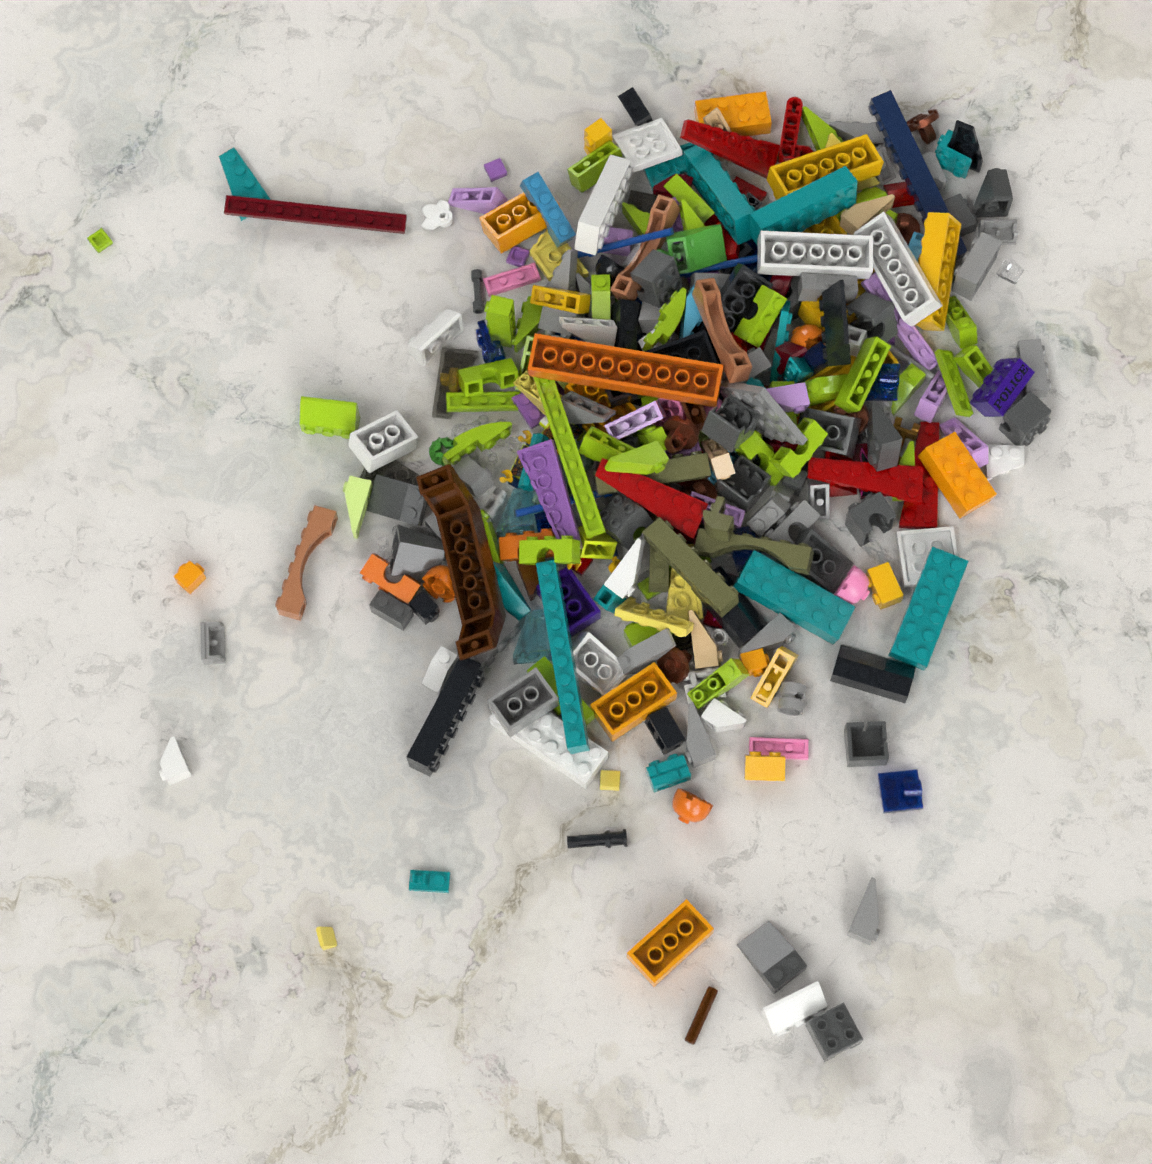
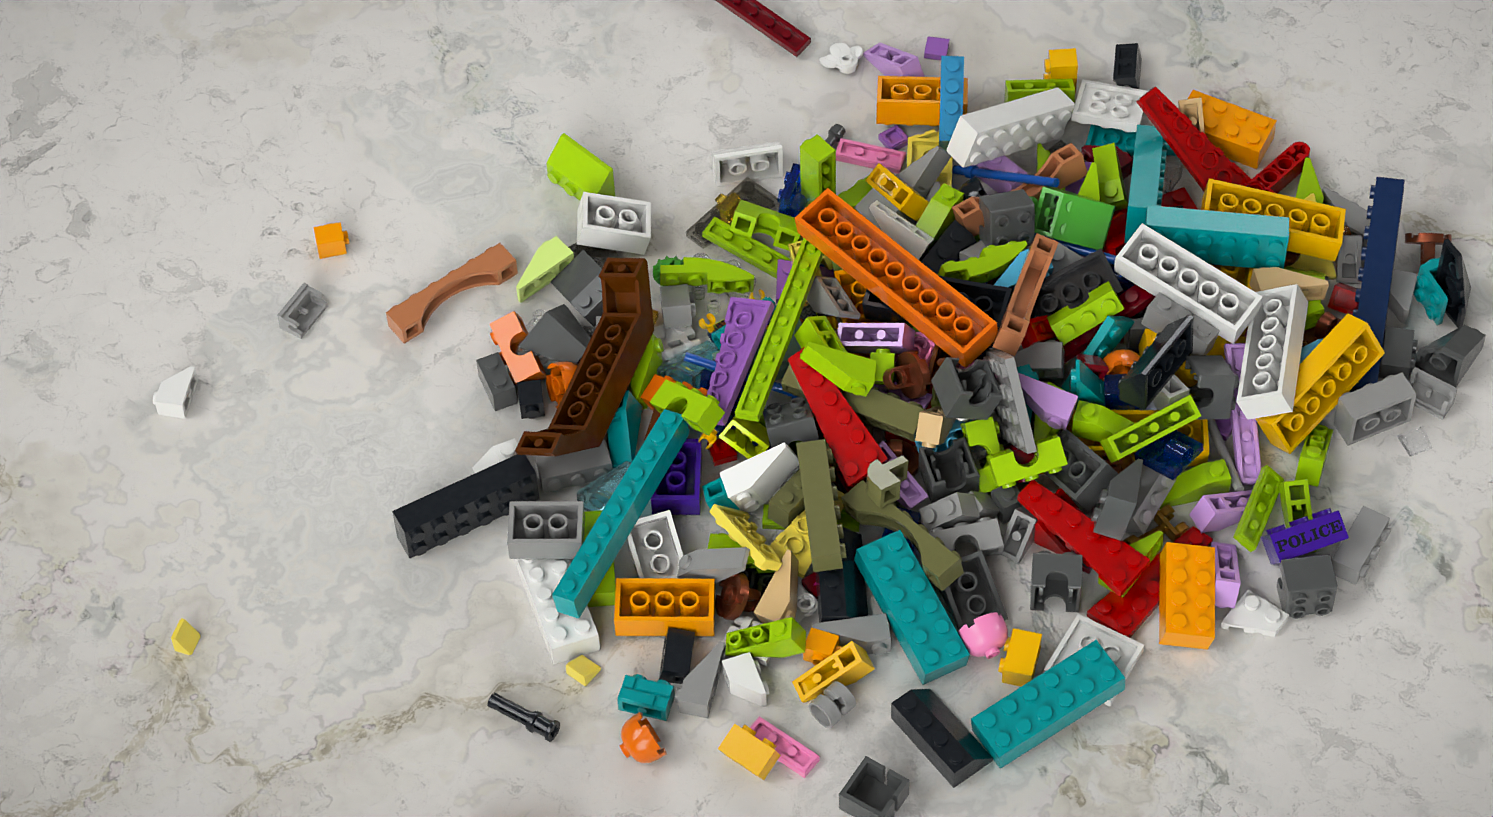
camera: 35 degrees right, 15 degrees down
(429, 881) = (327, 651): teal plate -> none

